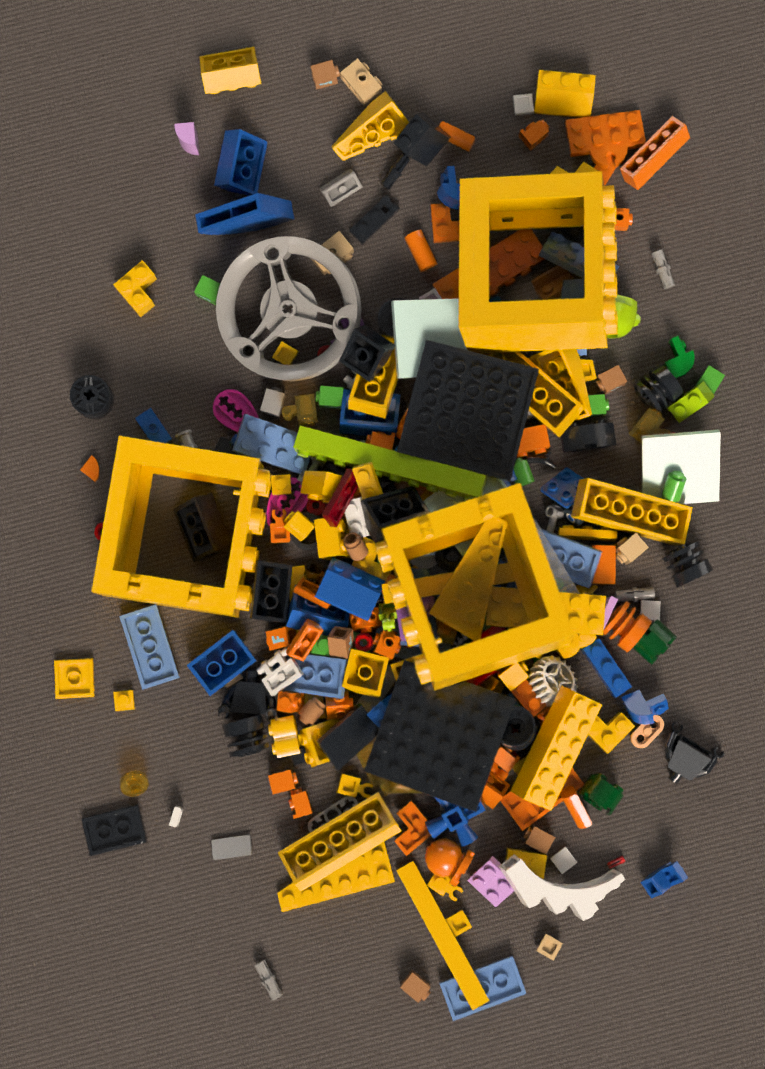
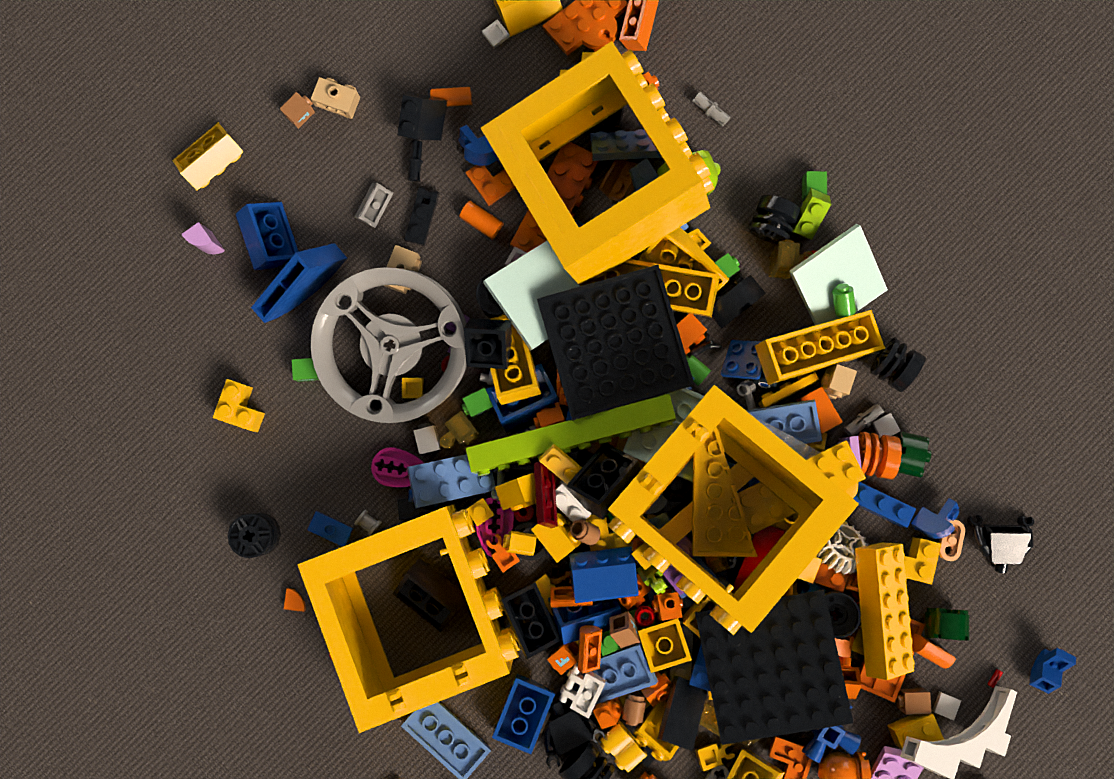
camera: 30 degrees left, 0 degrees up
(376, 124) = (371, 130): yellow wedge -> none
(534, 133) = (521, 54): orange brick -> none
(610, 380) = (725, 237): medium nougat brick -> none
(683, 361) = (779, 182): green brick -> none

